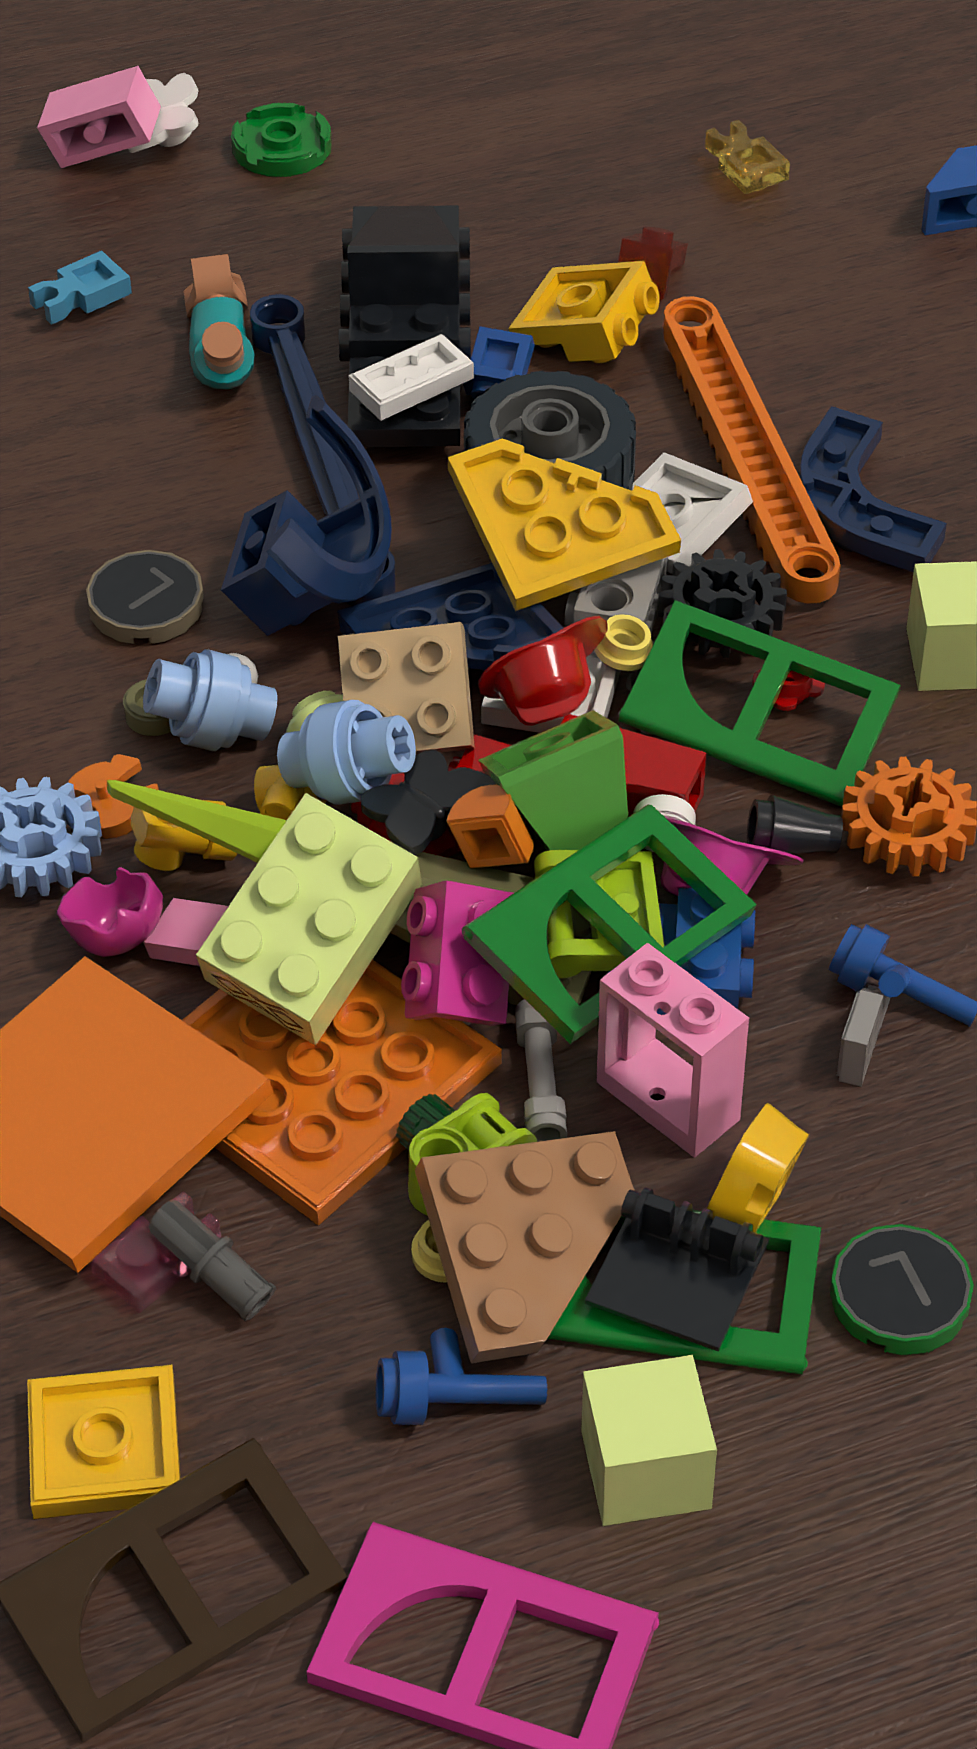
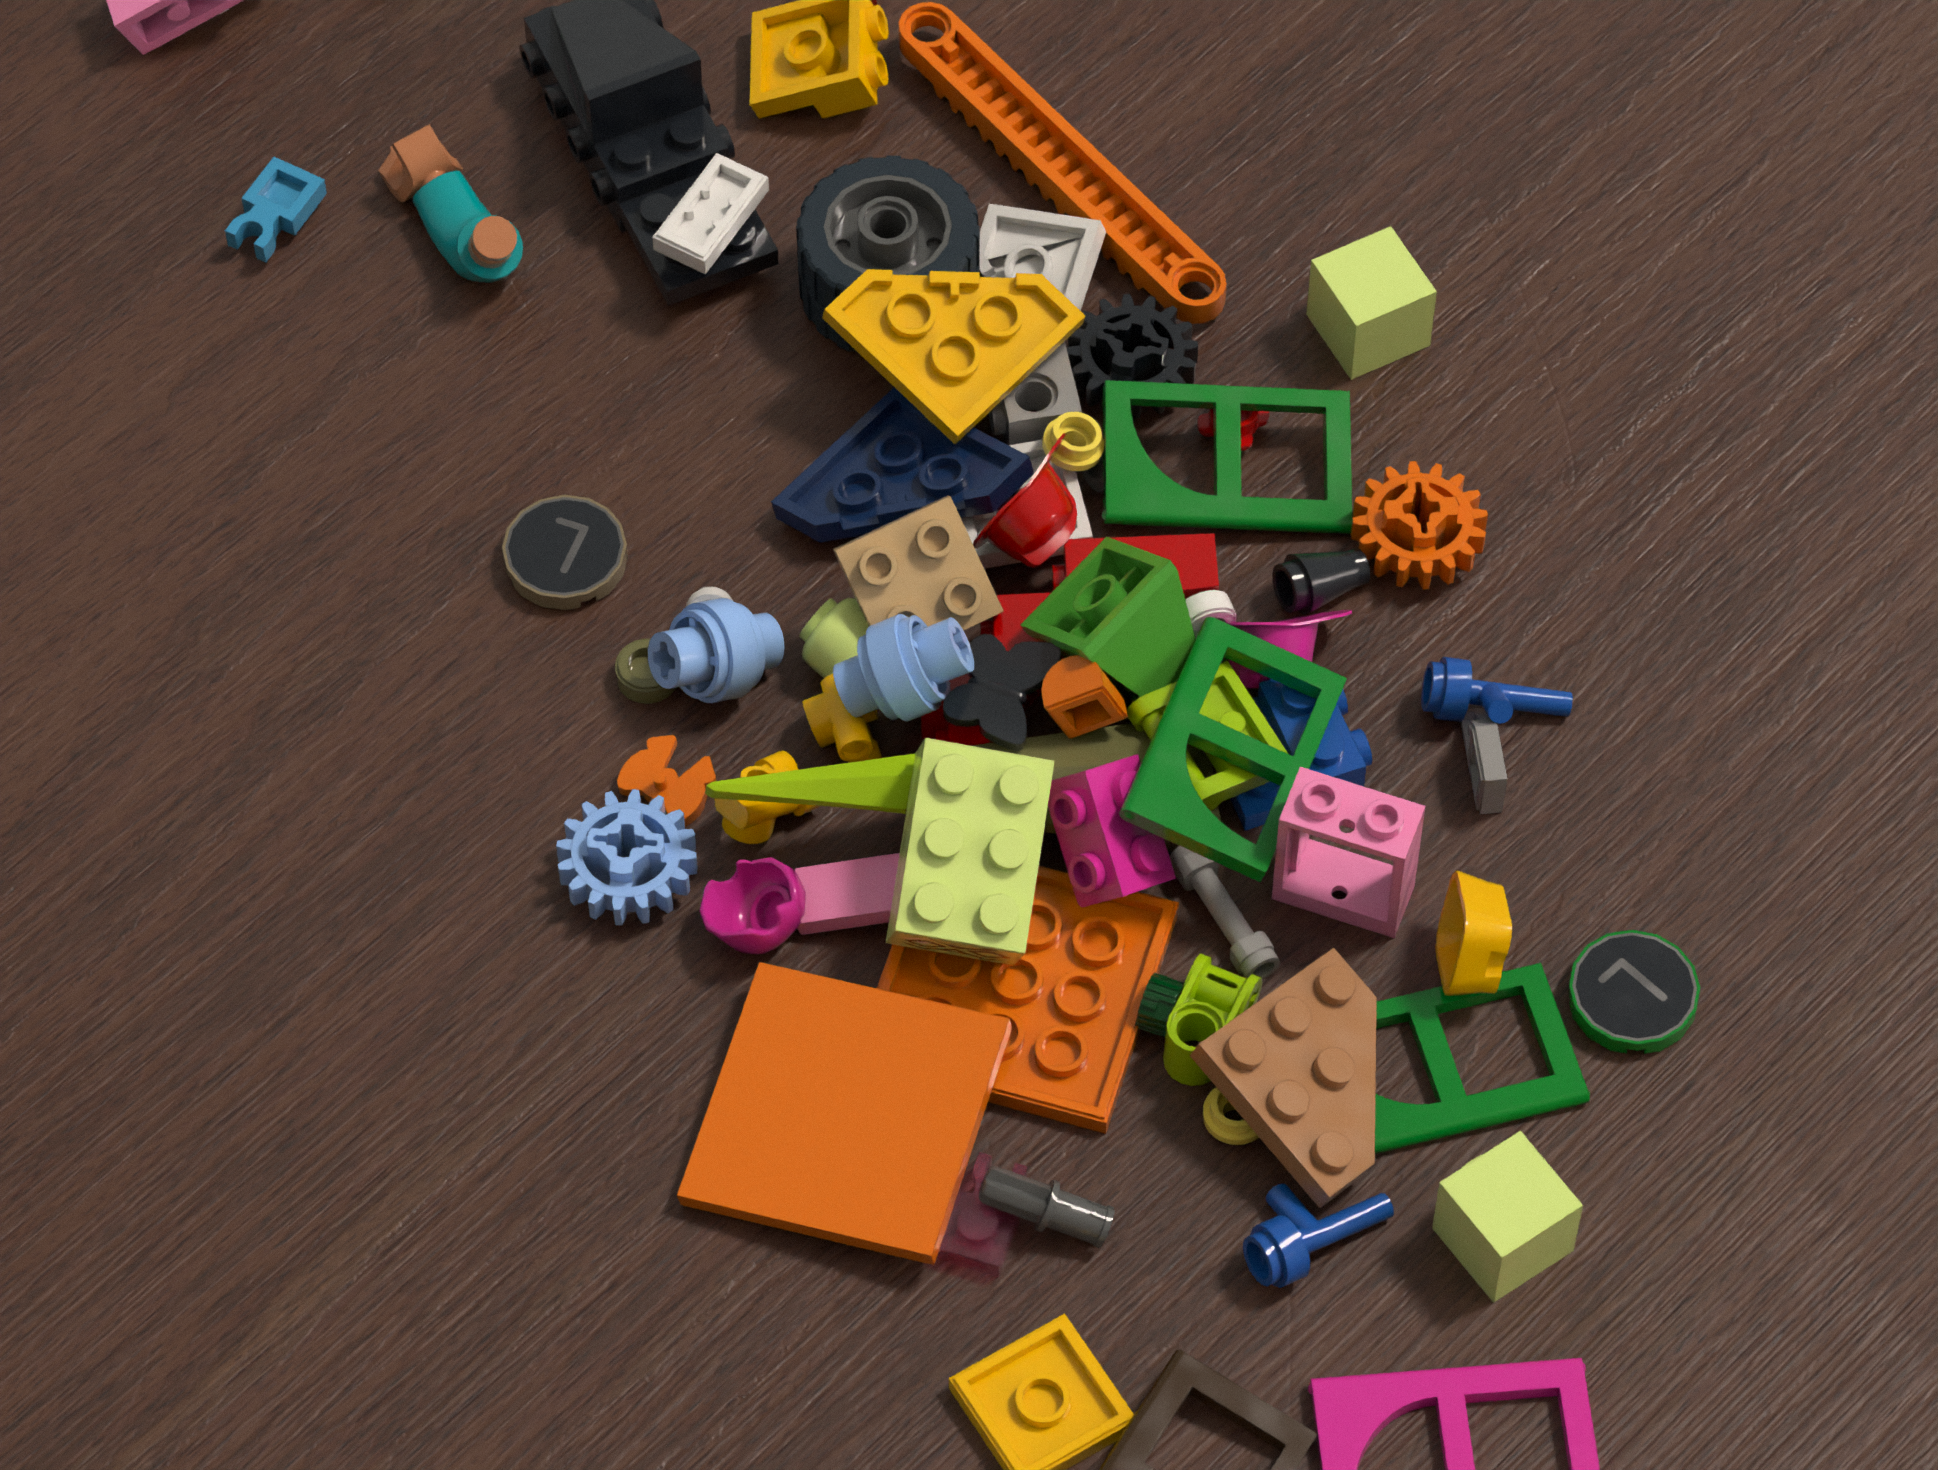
camera: 25 degrees left, 10 degrees up
(294, 564) = (732, 459): dark blue piece -> none
(298, 386) = (639, 315): dark blue piece -> none
(498, 357) = (768, 148): blue bracket -> none
(677, 1269) = (1448, 1053): black hinge -> none
(848, 509) = (1200, 207): dark blue plate -> none

